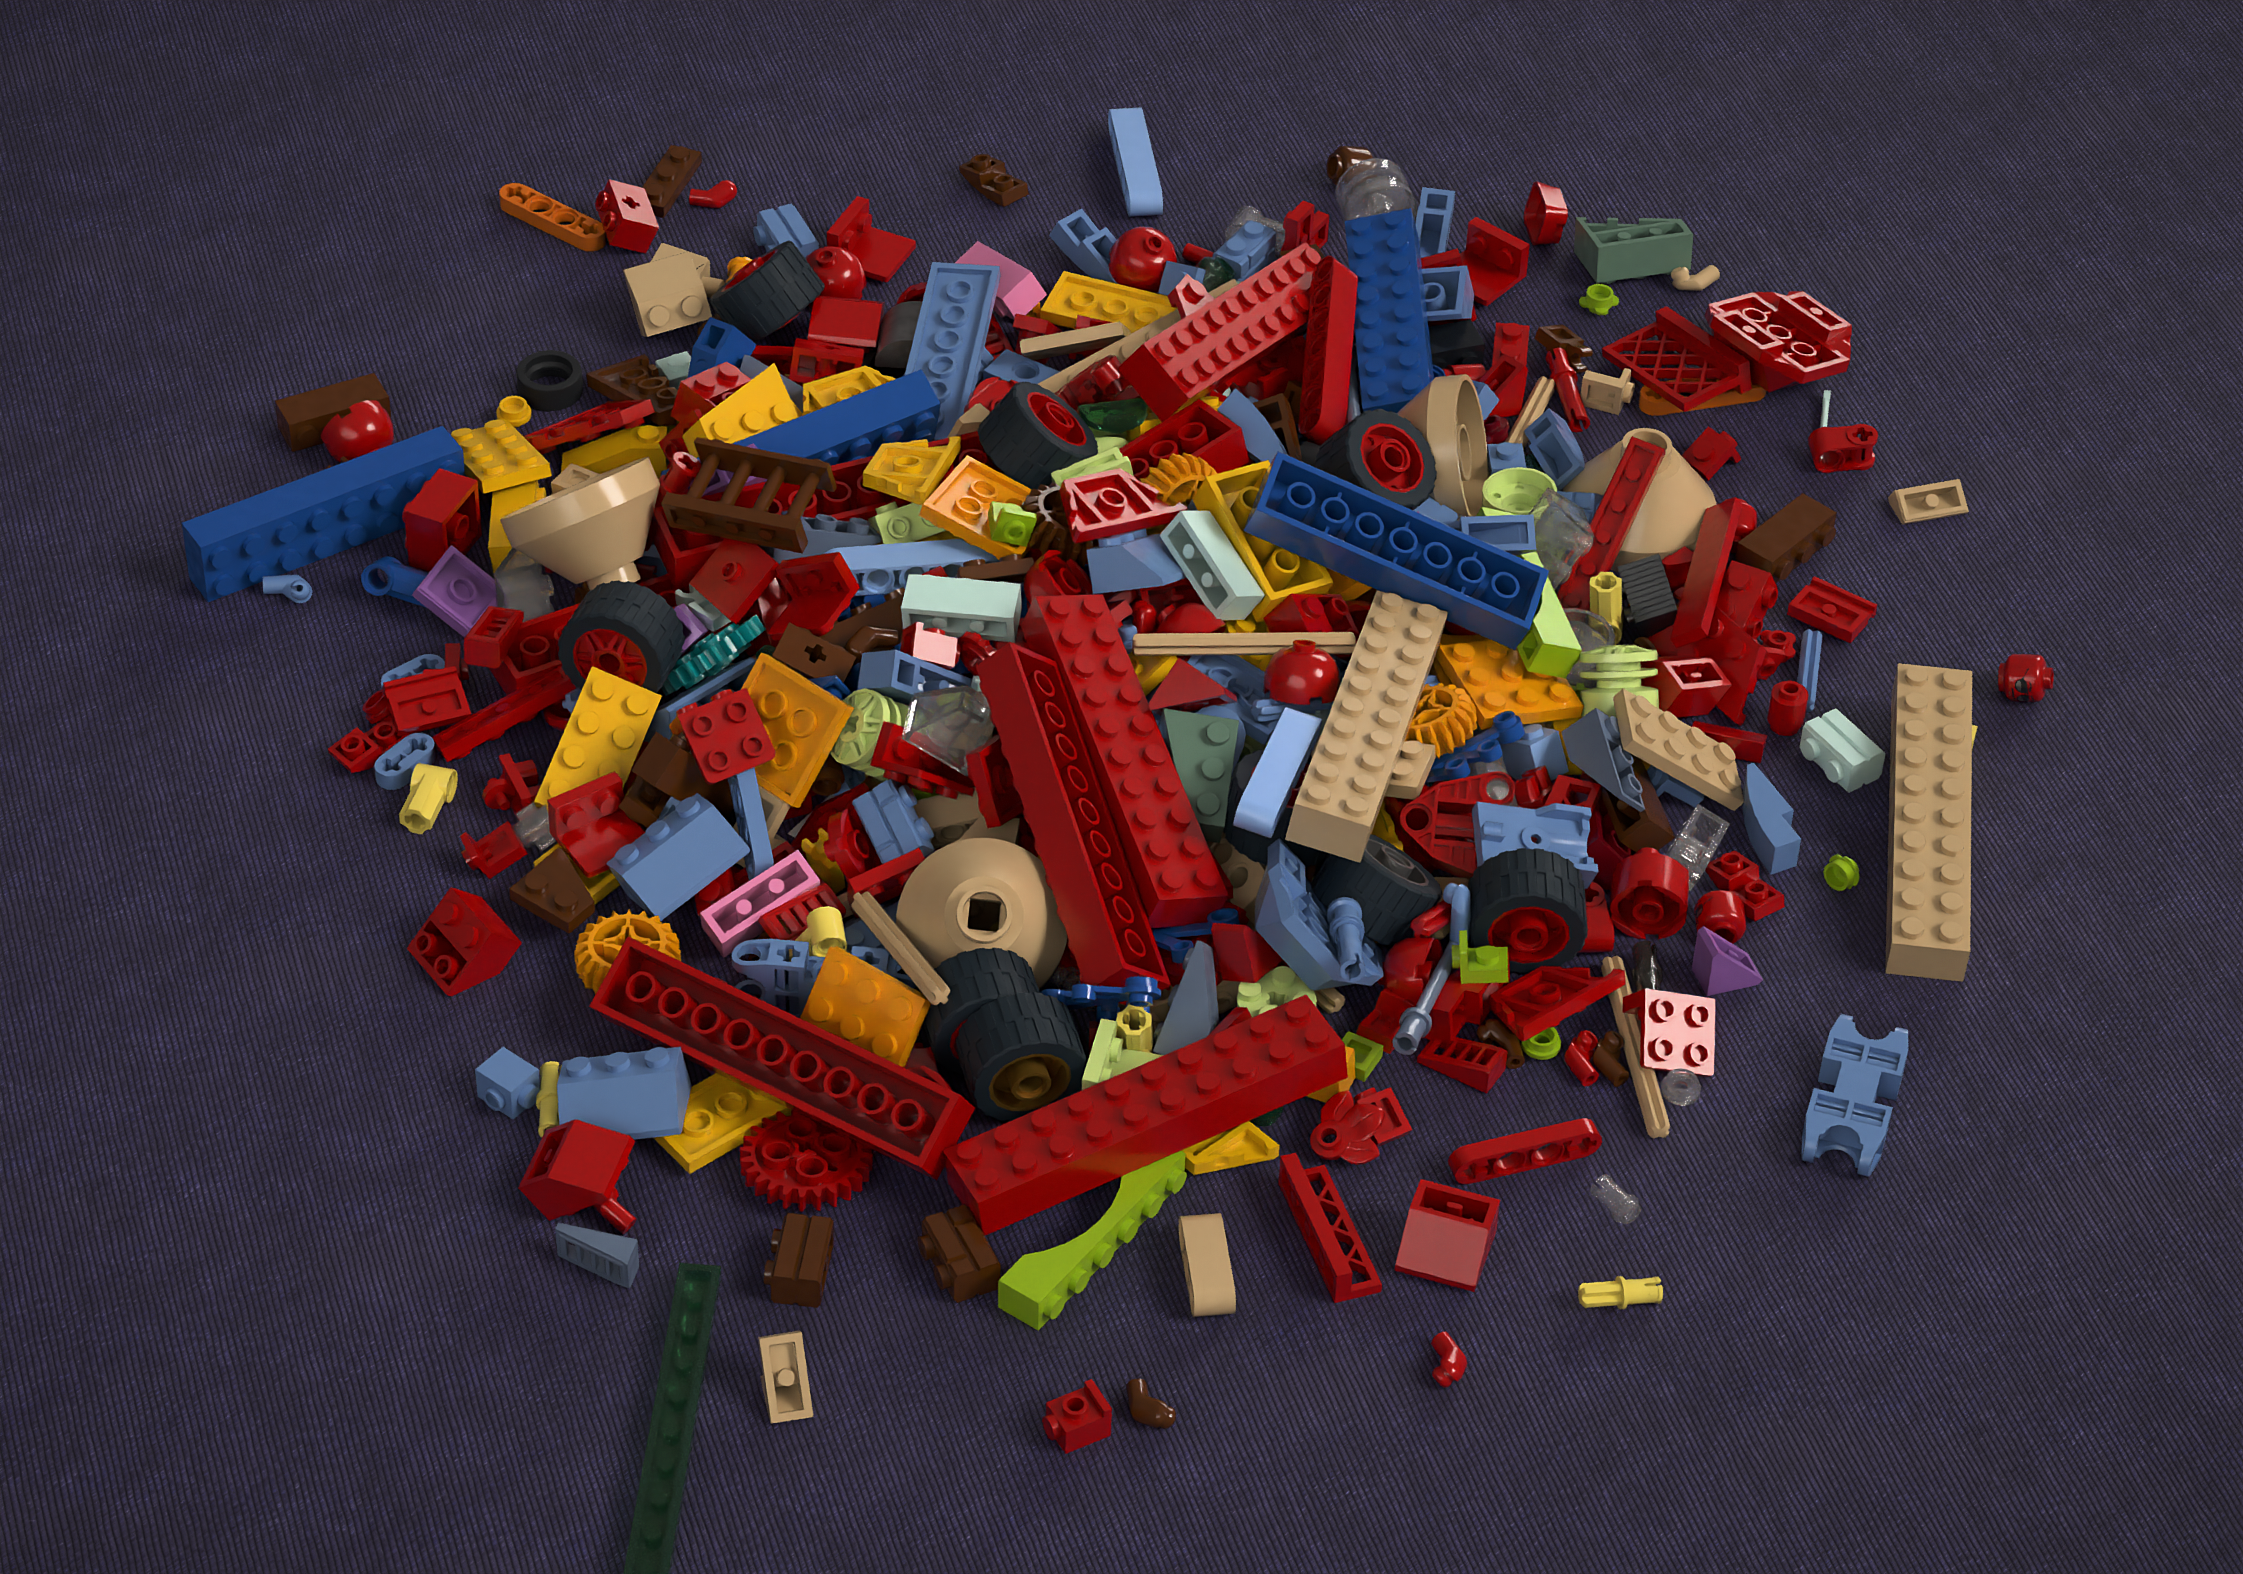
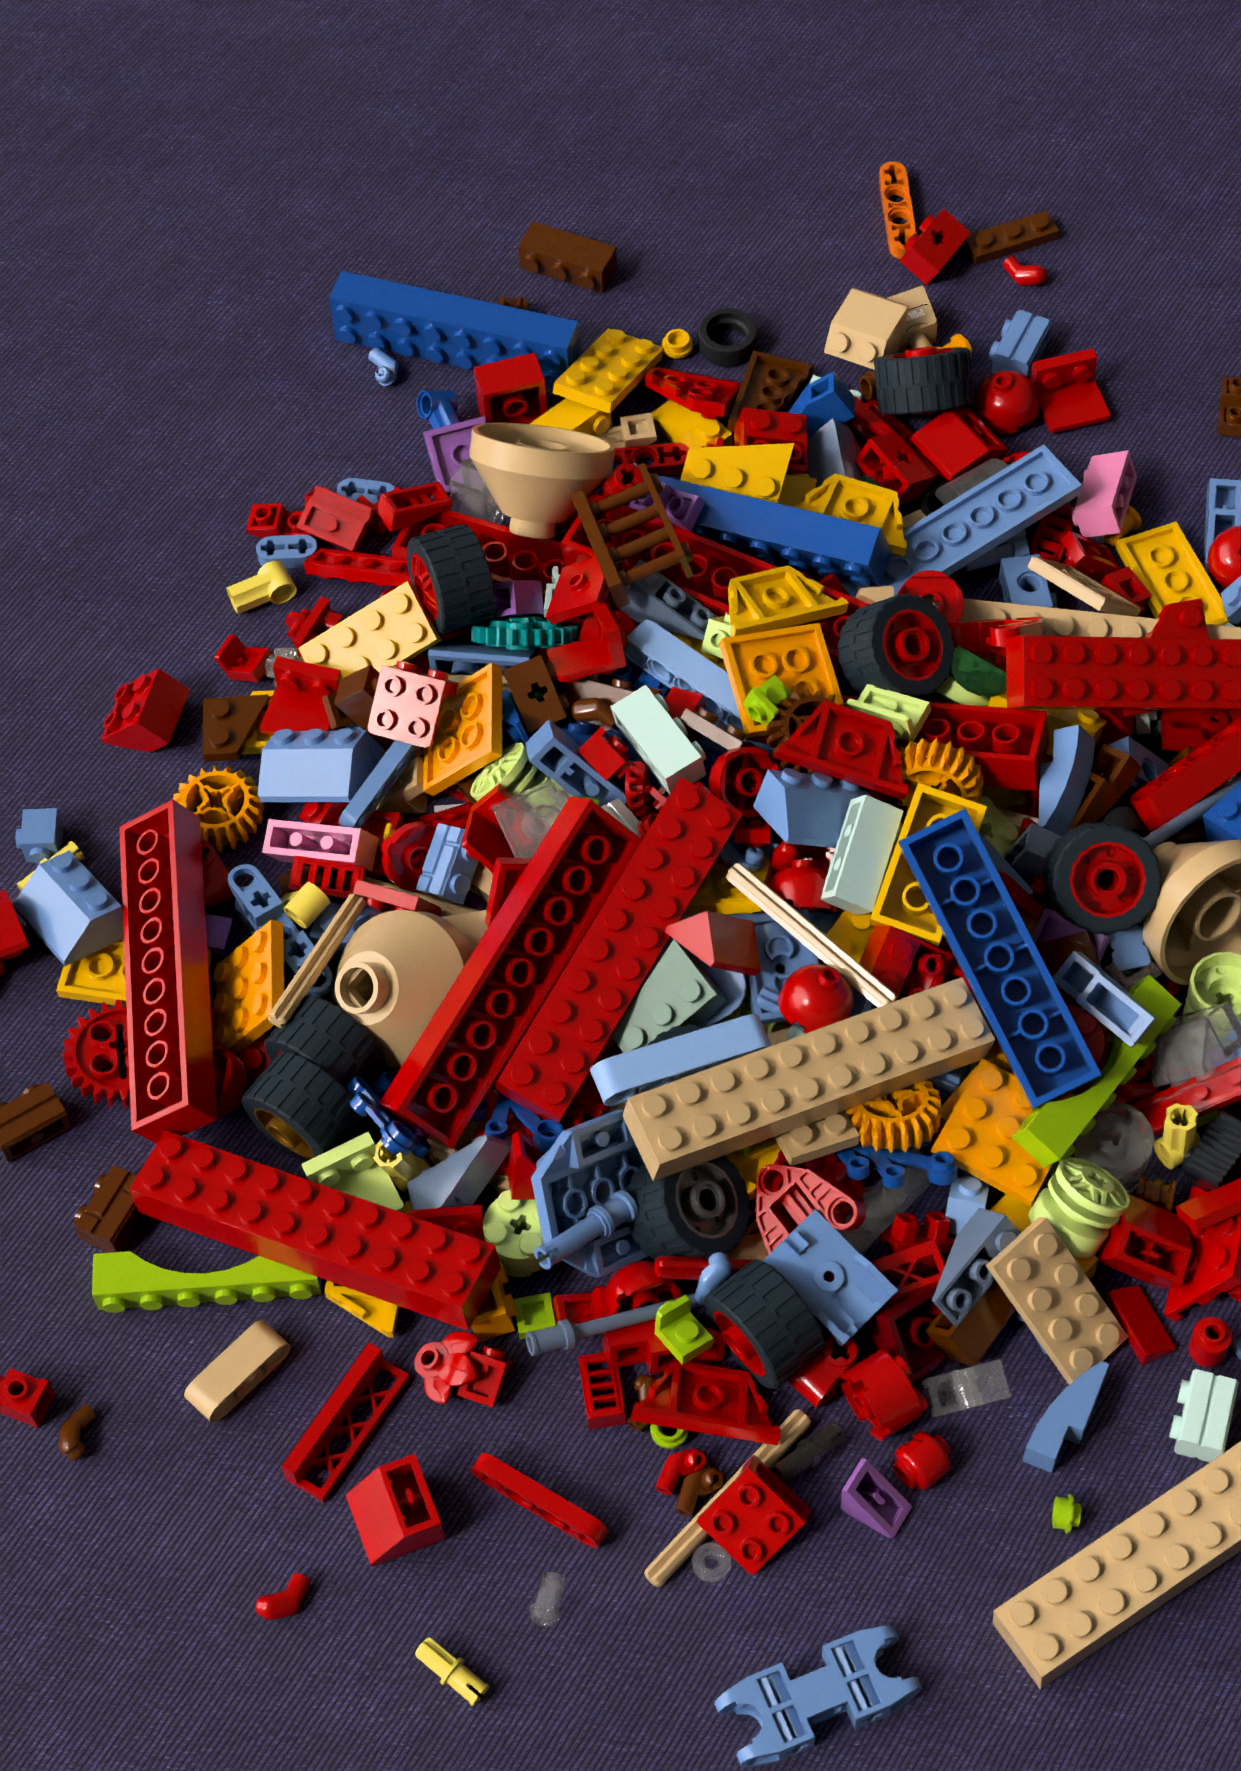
camera: 55 degrees right, 15 degrees up
(358, 432) = (553, 288): red cylinder -> none
(1741, 876) = (983, 1452): red slope -> none

